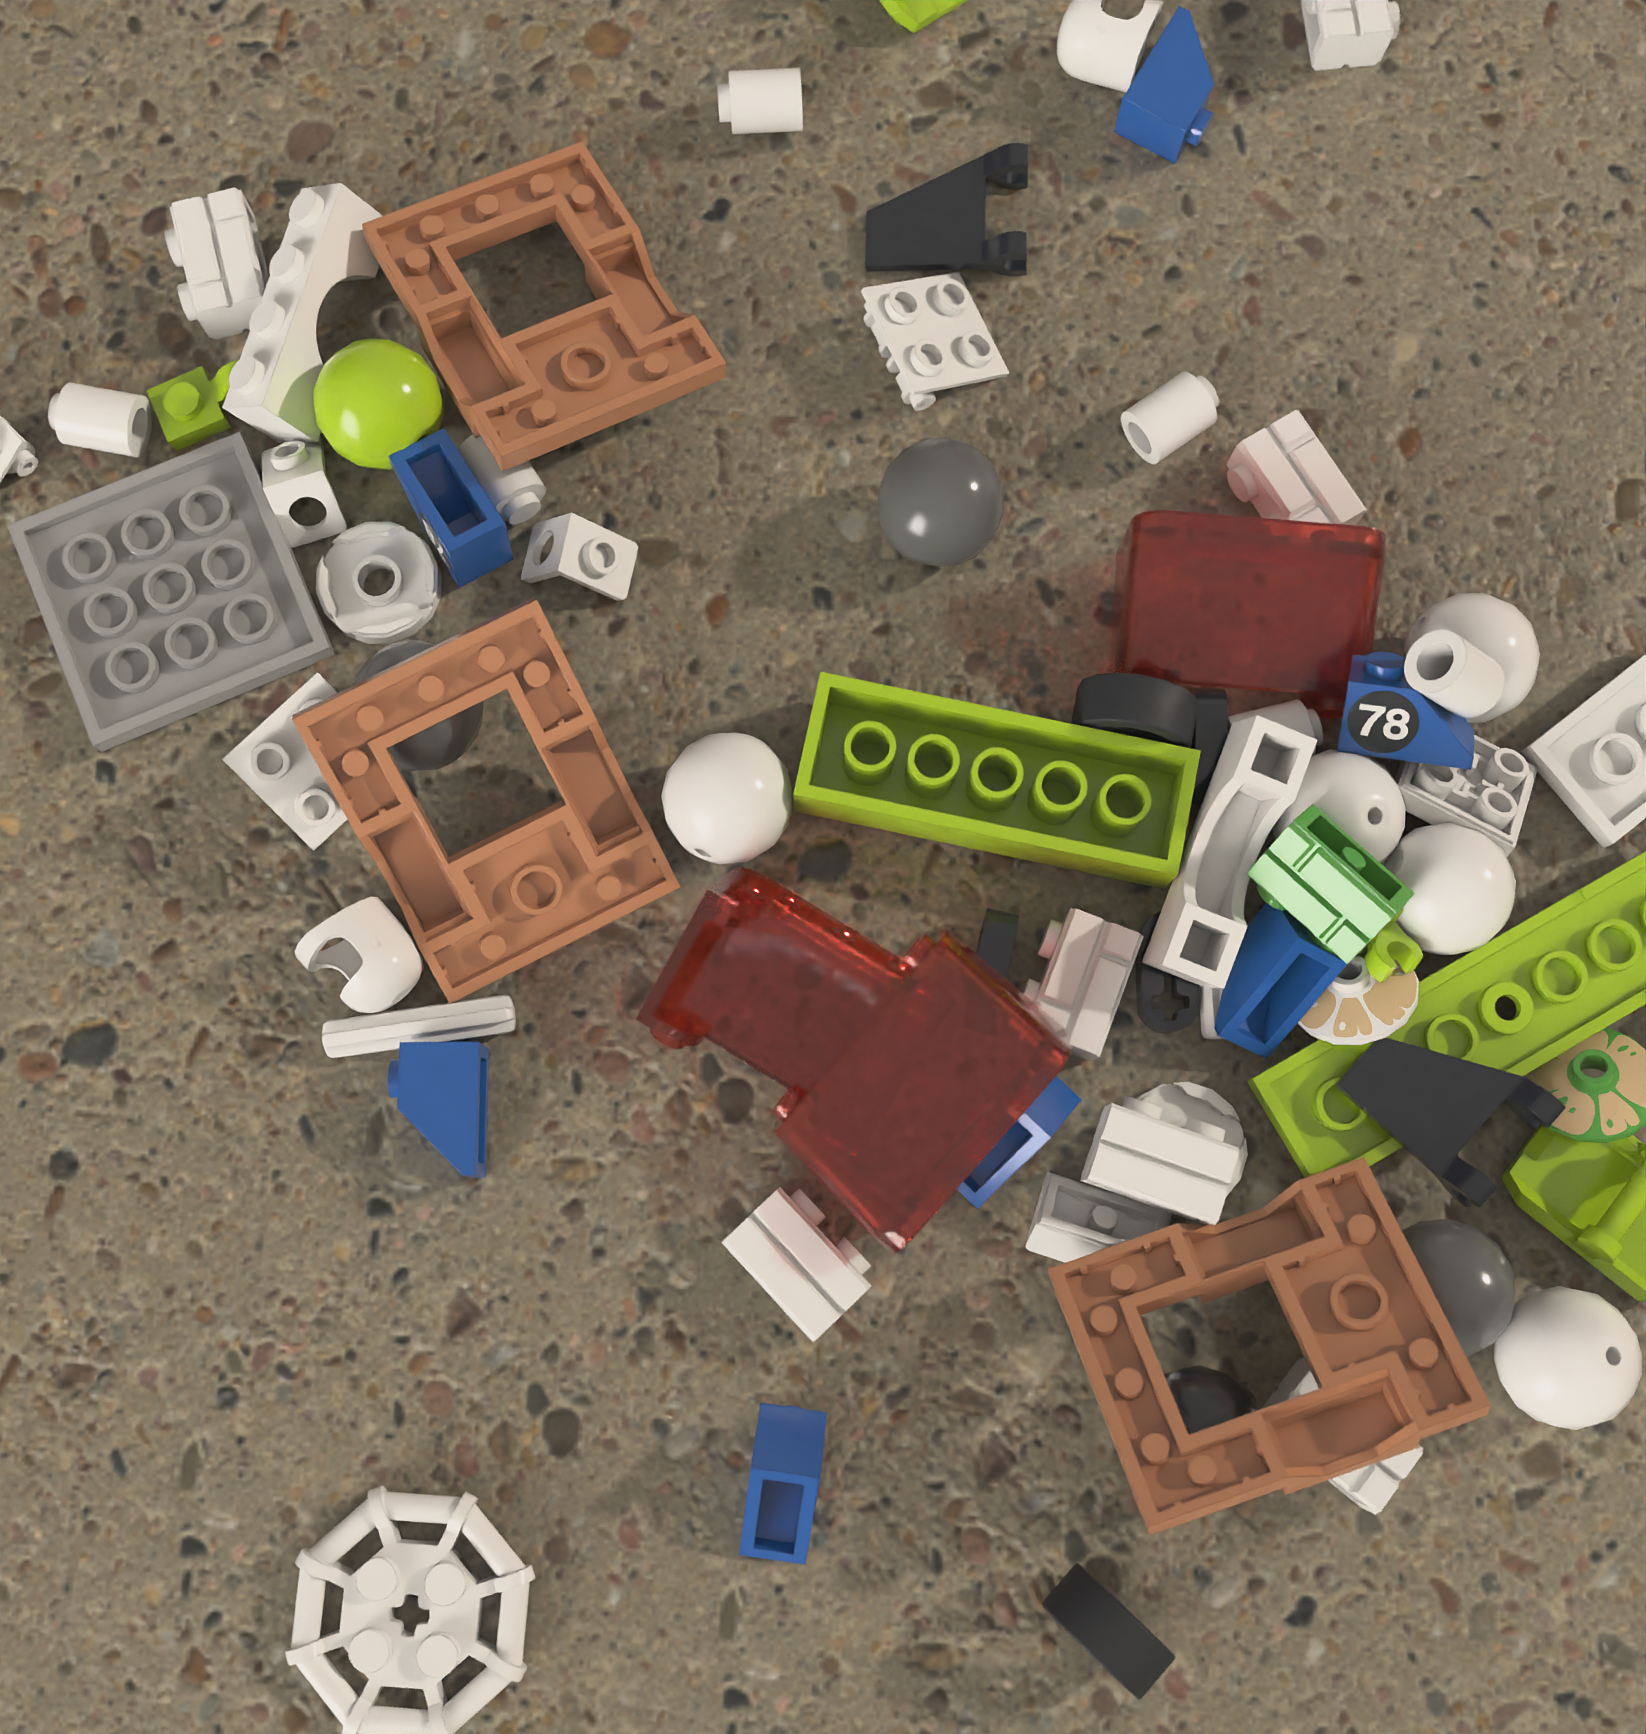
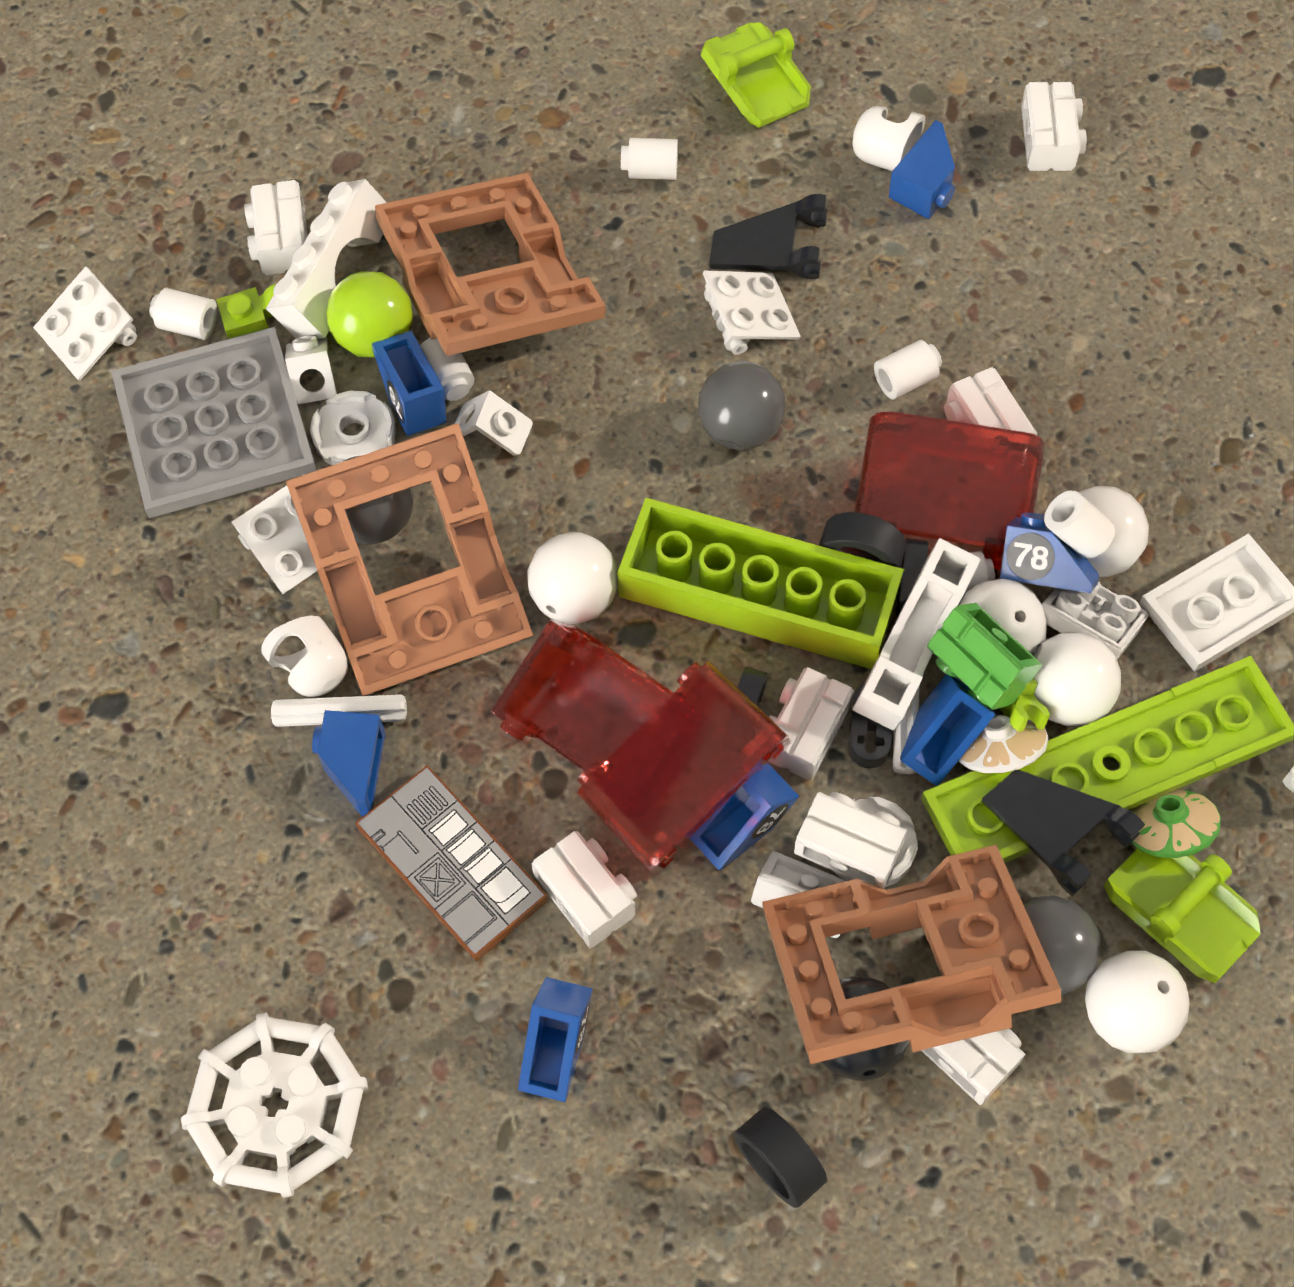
camera: 10 degrees right, 15 degrees down
(606, 1237) = (452, 862): none -> tile

